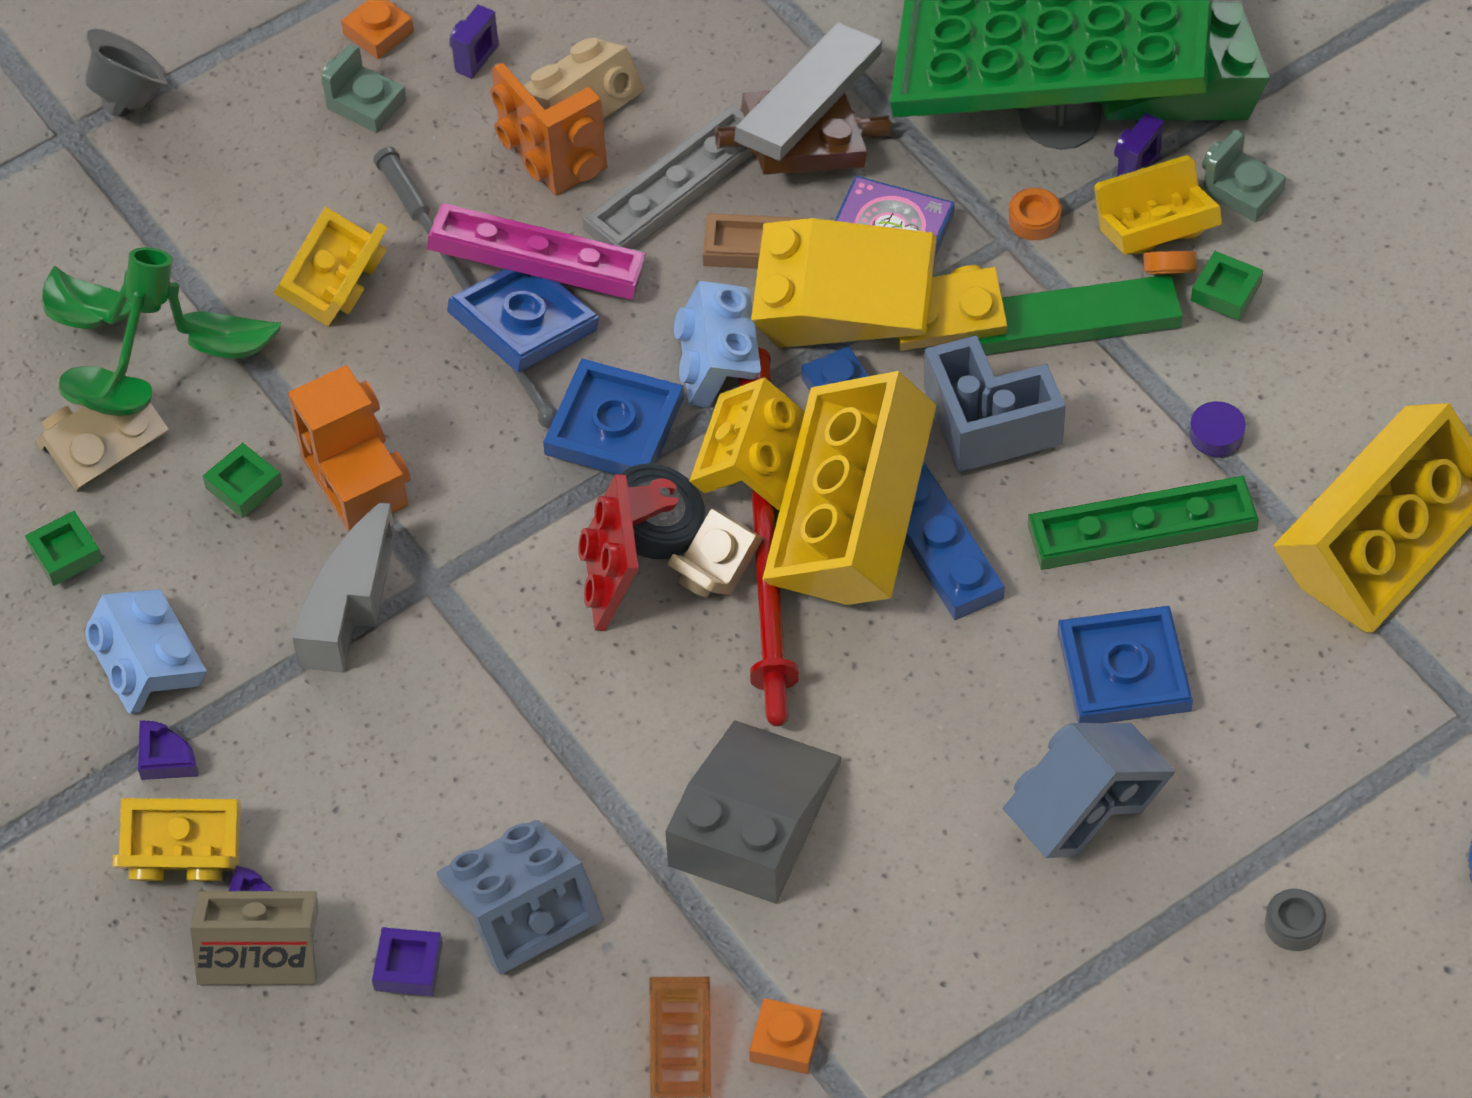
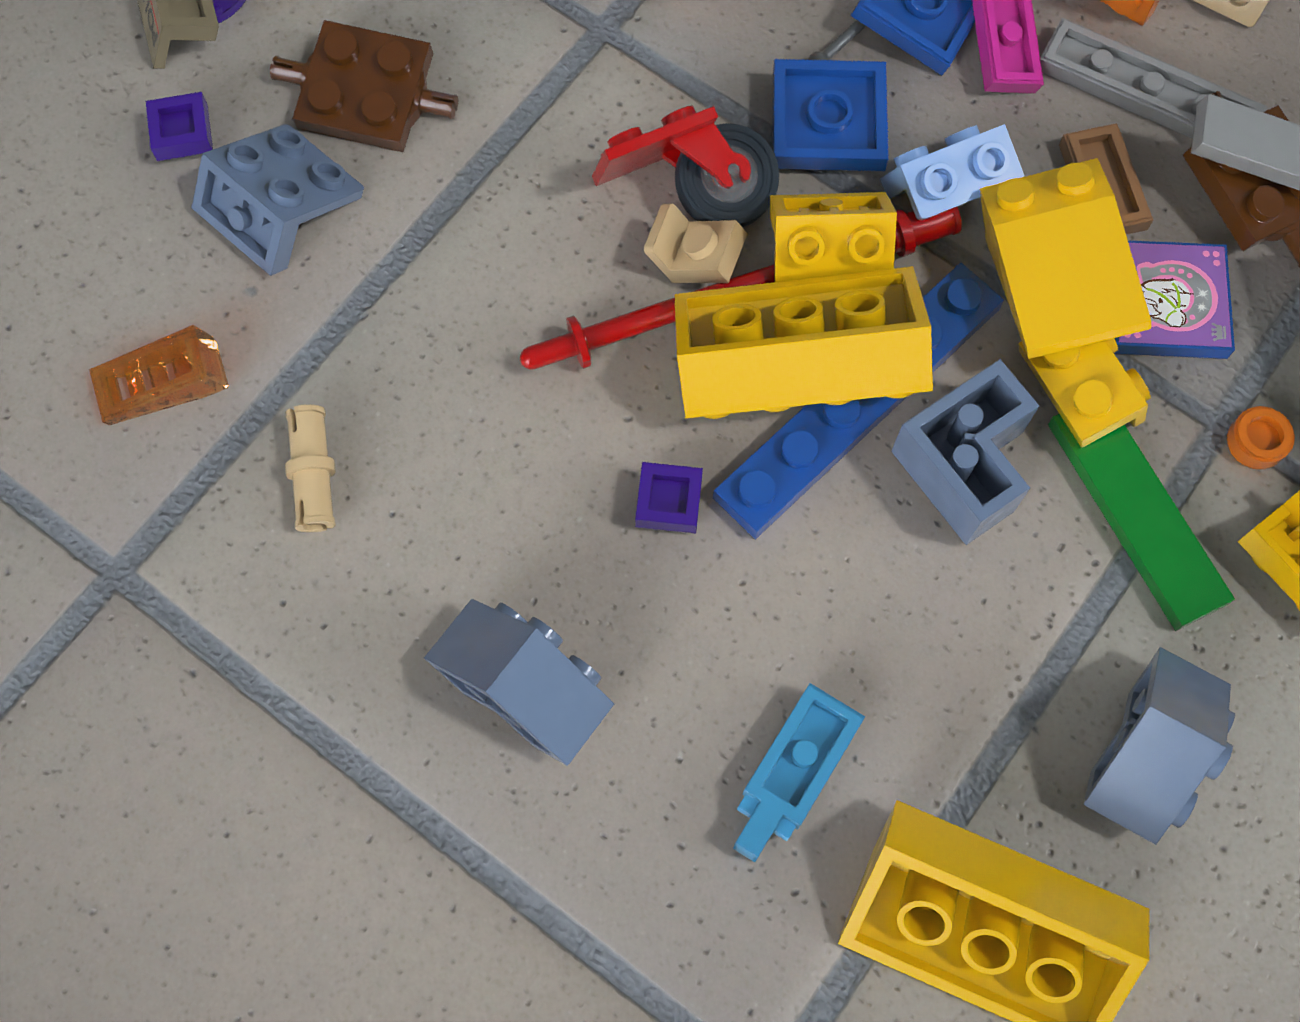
camera: 70 degrees right, 15 degrees up
(422, 793) = (363, 86): none -> reddish brown plate
(750, 810) = (420, 364): dark grey slope -> none
(785, 1036) = (182, 470): orange plate -> none
(825, 920) = (310, 468): none -> tan pin
(950, 643) = (668, 497): none -> dark purple plate
(1124, 665) = (705, 682): blue tile -> none
(1142, 522) = (897, 657): green tile -> none
(1170, 262) = (1249, 593): orange tile -> none
(1217, 429) = (1048, 703): dark purple tile -> none
(1224, 617) = (795, 769): none -> dark azure hinge
(1226, 285) = (1248, 662): green plate -> none
(1285, 349) = (1164, 749): none -> sand blue brick
(1295, 919) = (438, 942): dark grey tile -> none

